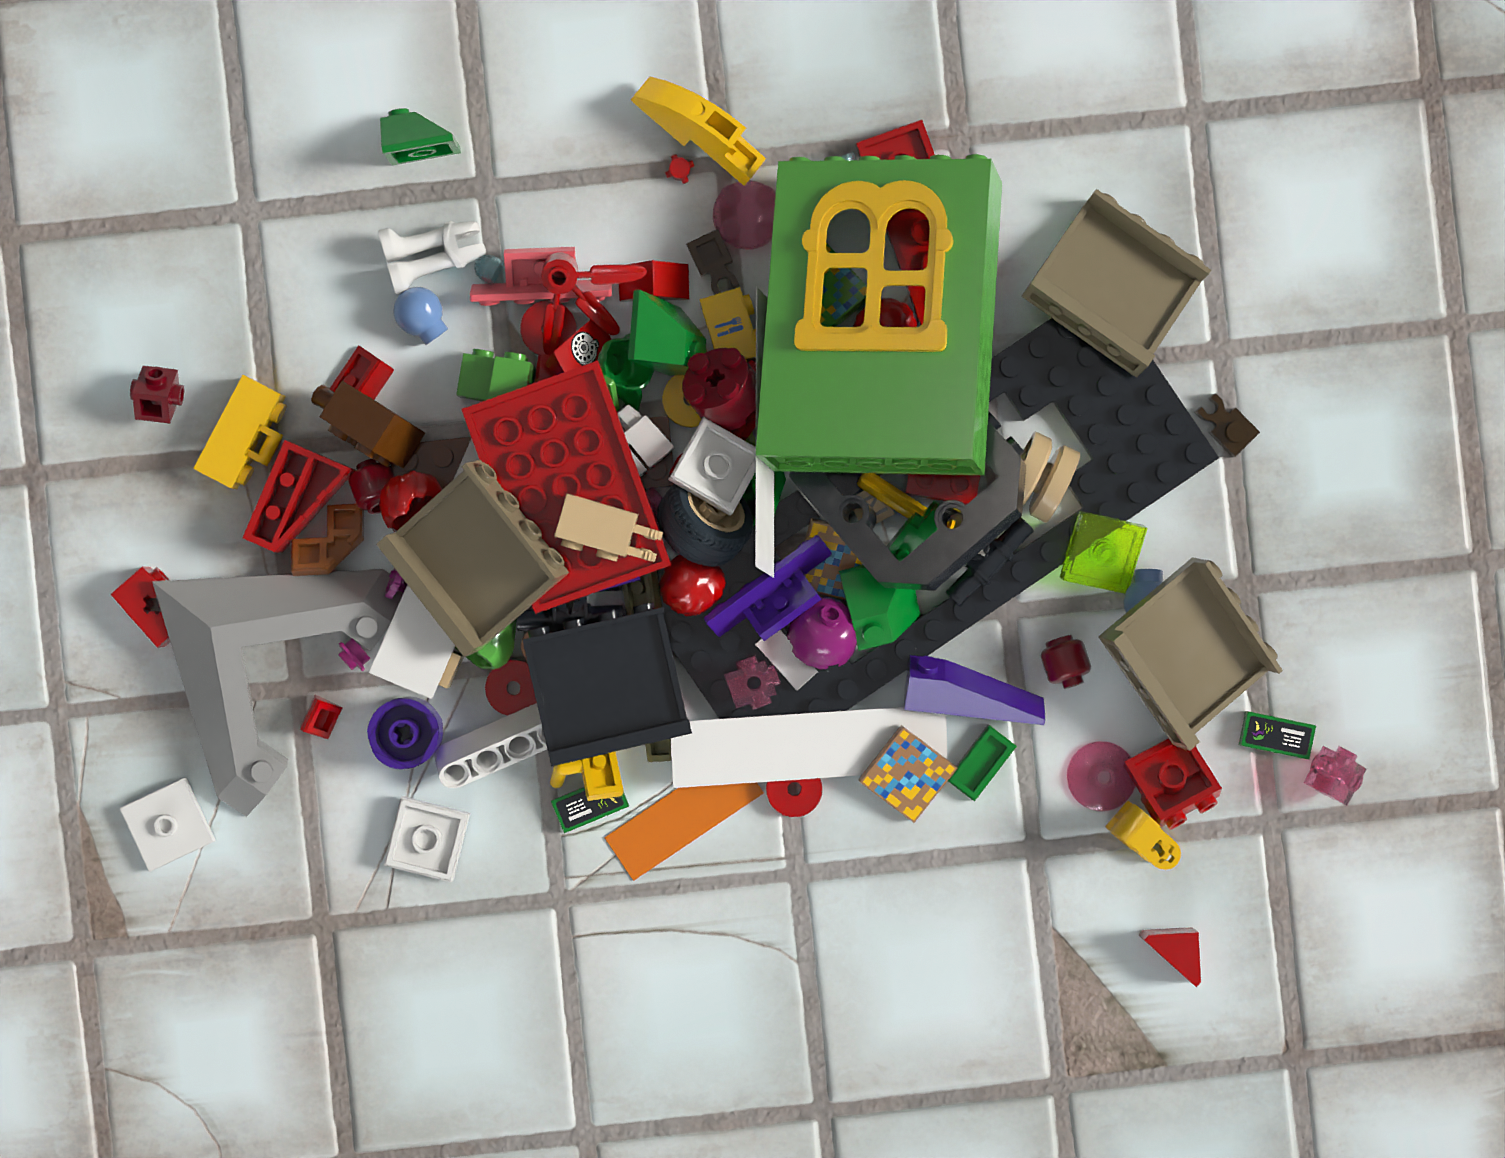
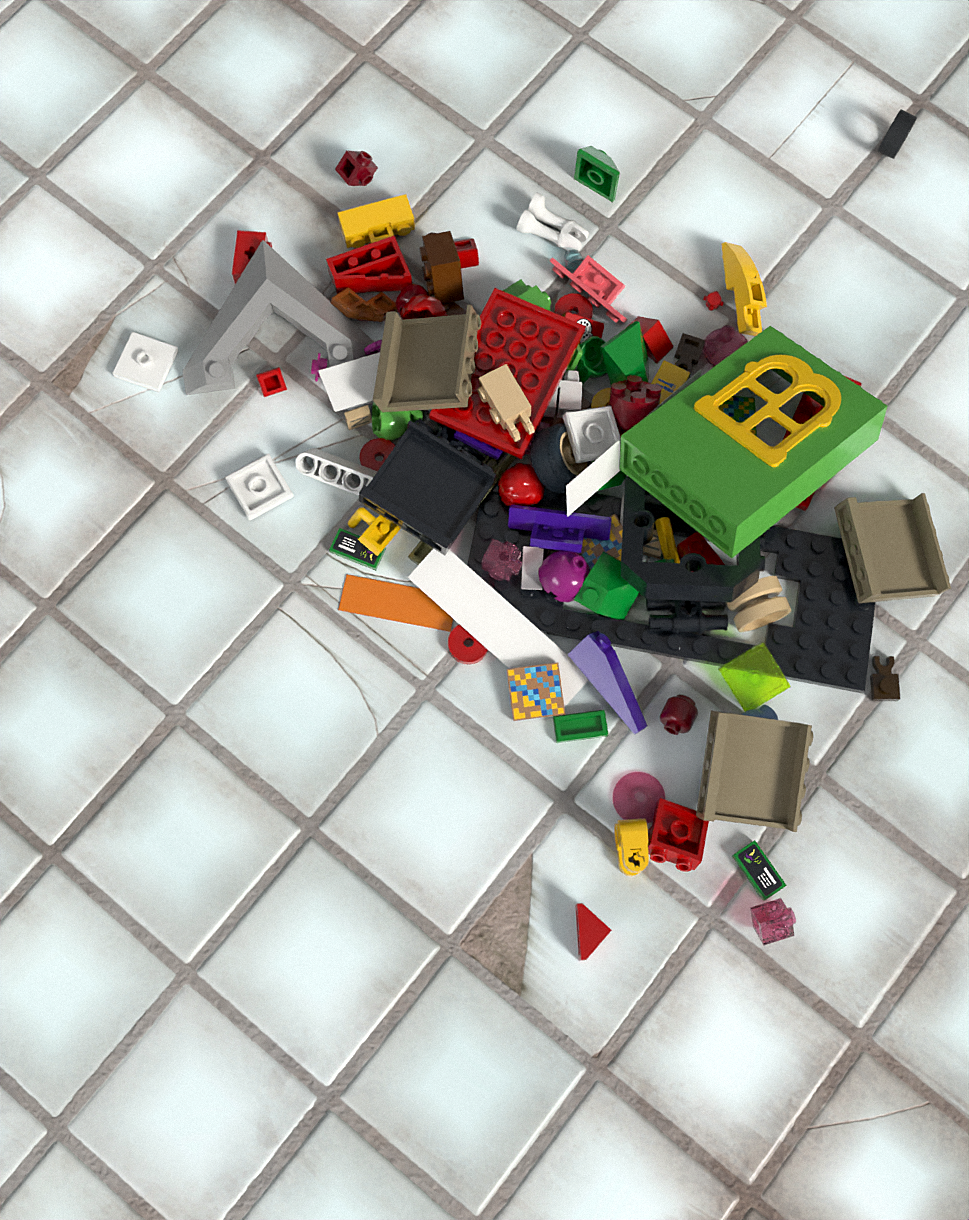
camera: 40 degrees right, 15 degrees down
(386, 739) = (302, 410): dark purple brick -> none
(419, 314) = (518, 248): medium blue piece -> none
(586, 301) = (606, 310): red plant -> none

